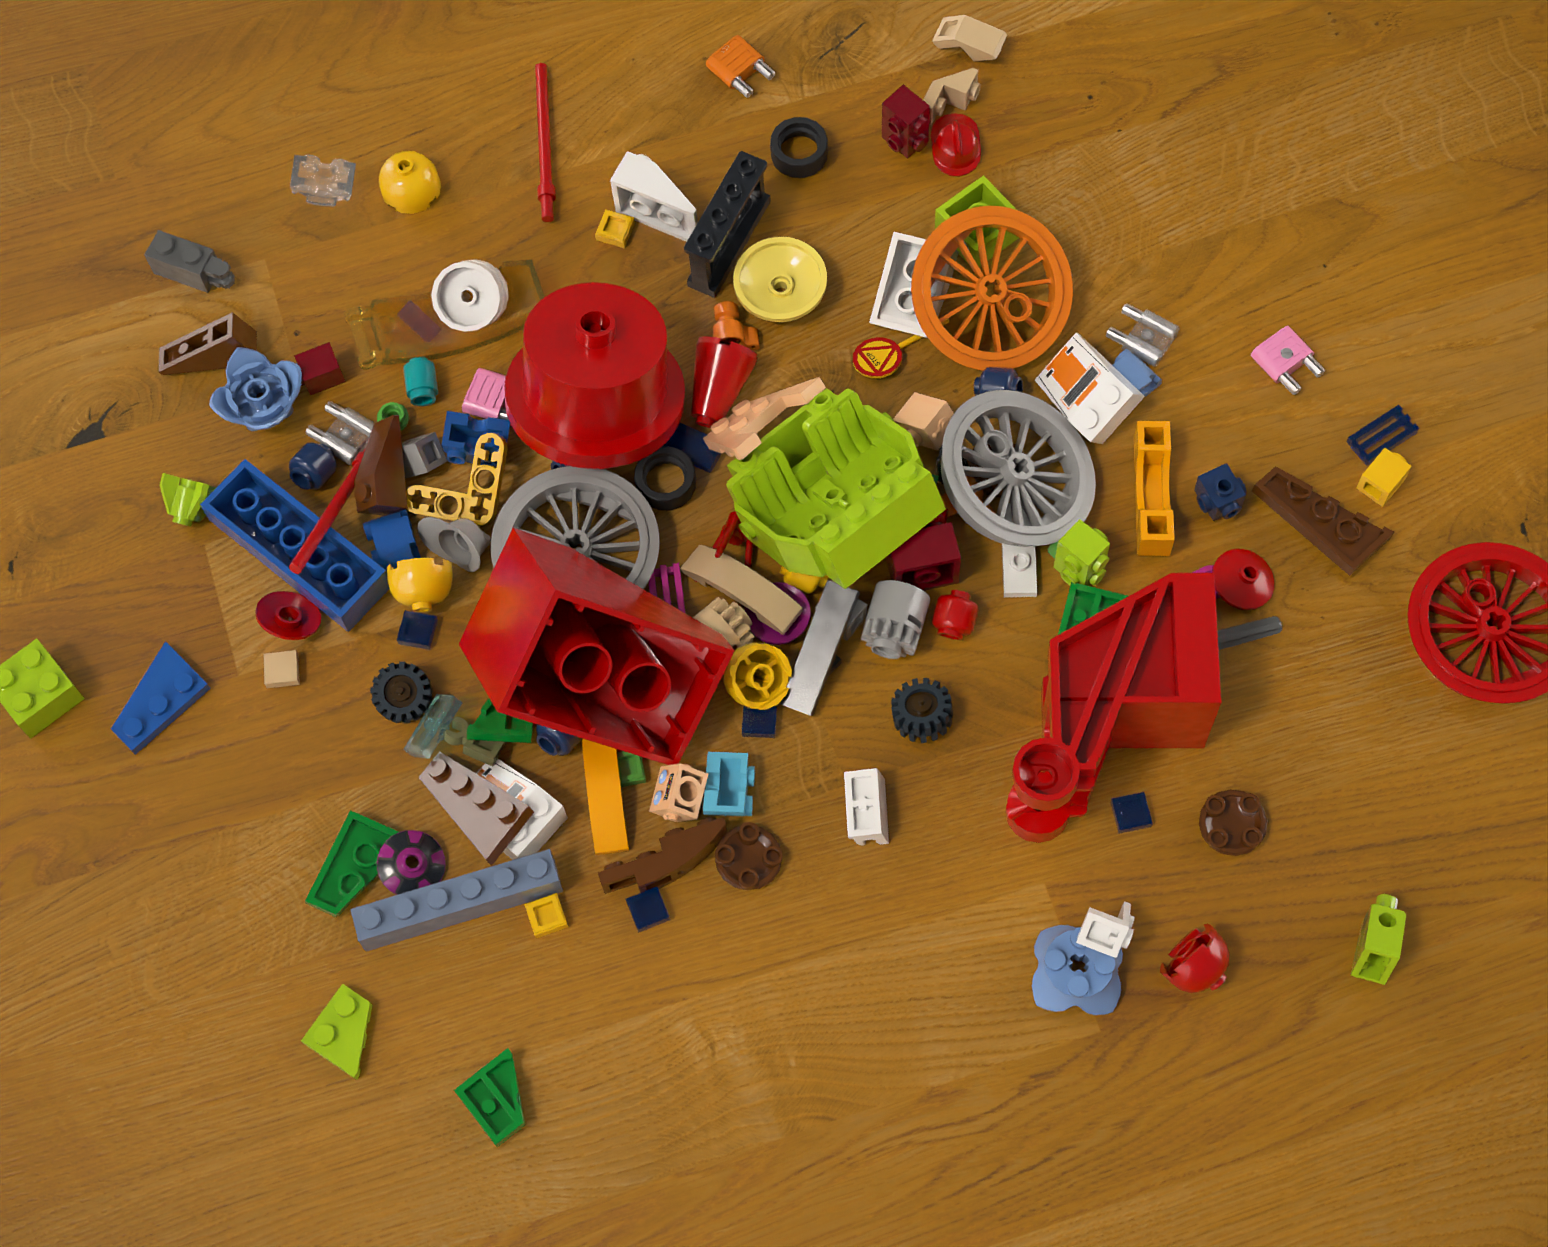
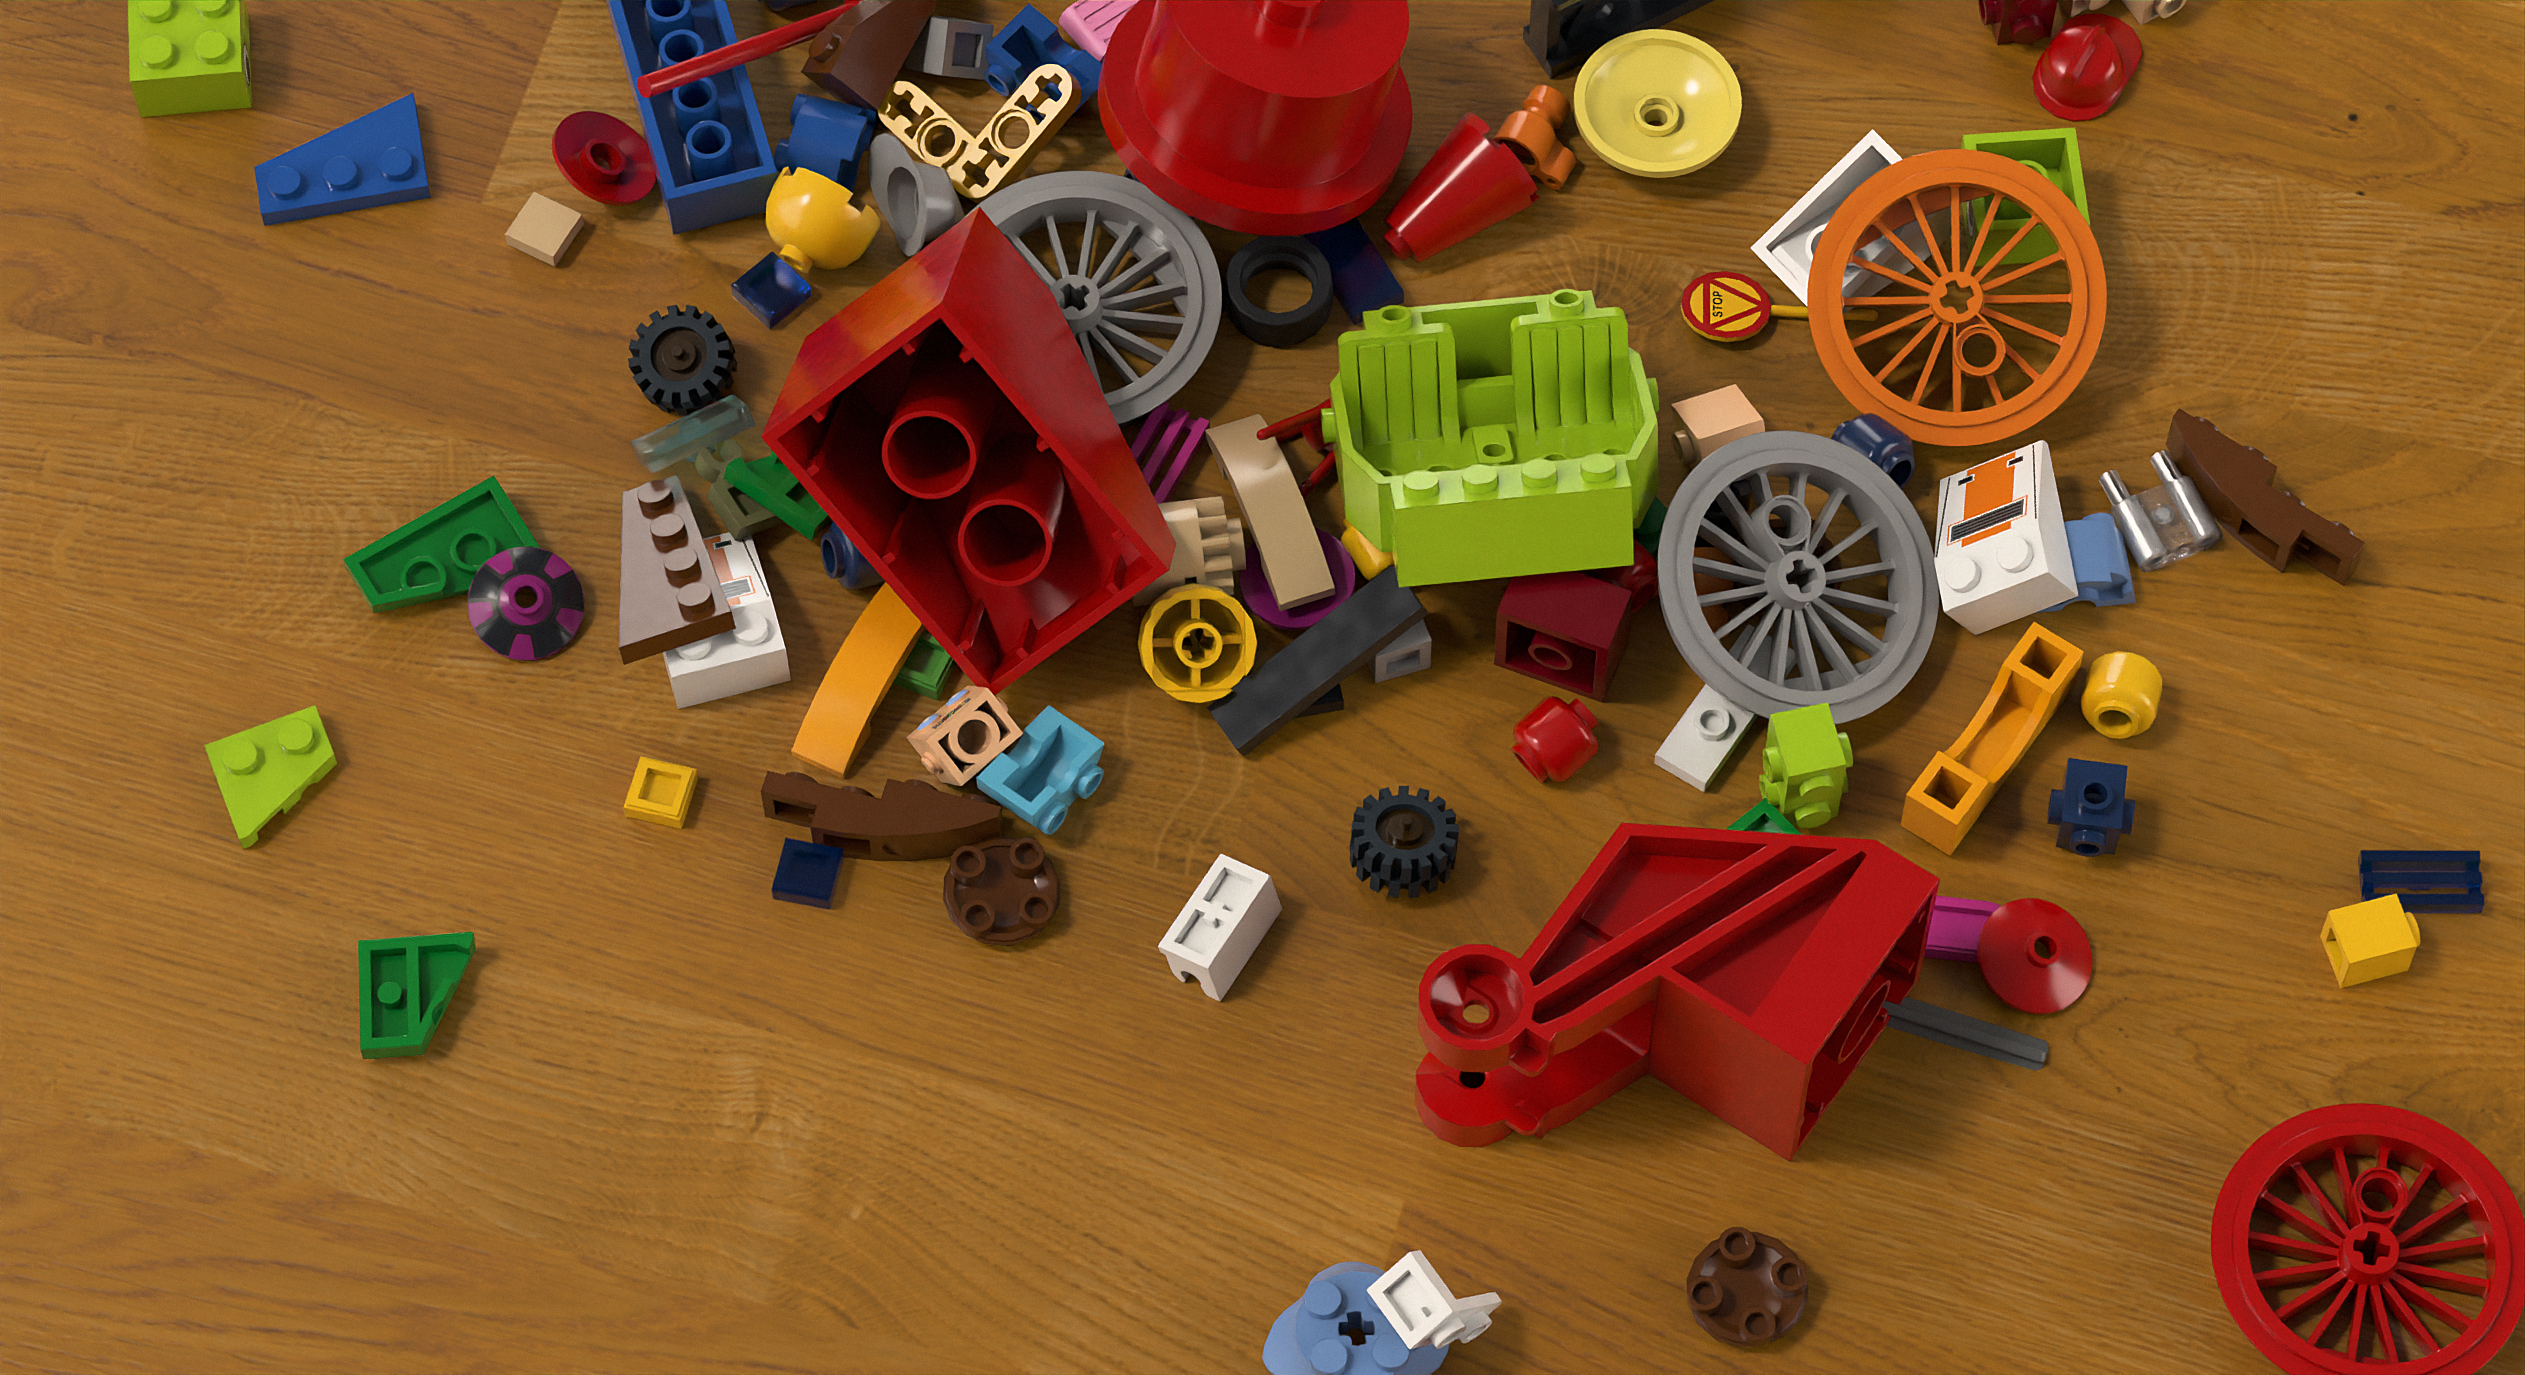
camera: 30 degrees right, 5 degrees down
(456, 900) = (550, 690): sand blue brick -> none
(739, 431) = (1465, 270): light nougat wing -> none
(759, 722) = (1160, 716): clear blue tile -> none
(895, 619) = (1458, 688): light grey gear -> none
(1131, 812) = (1607, 1181): clear blue tile -> none
(1183, 307) = (2241, 498): none -> reddish brown slope
(1192, 430) = (2121, 694): none -> yellow head
(1283, 355) = (2355, 672): bright pink piece -> none
(1334, 530) = (2224, 949): reddish brown wing -> none

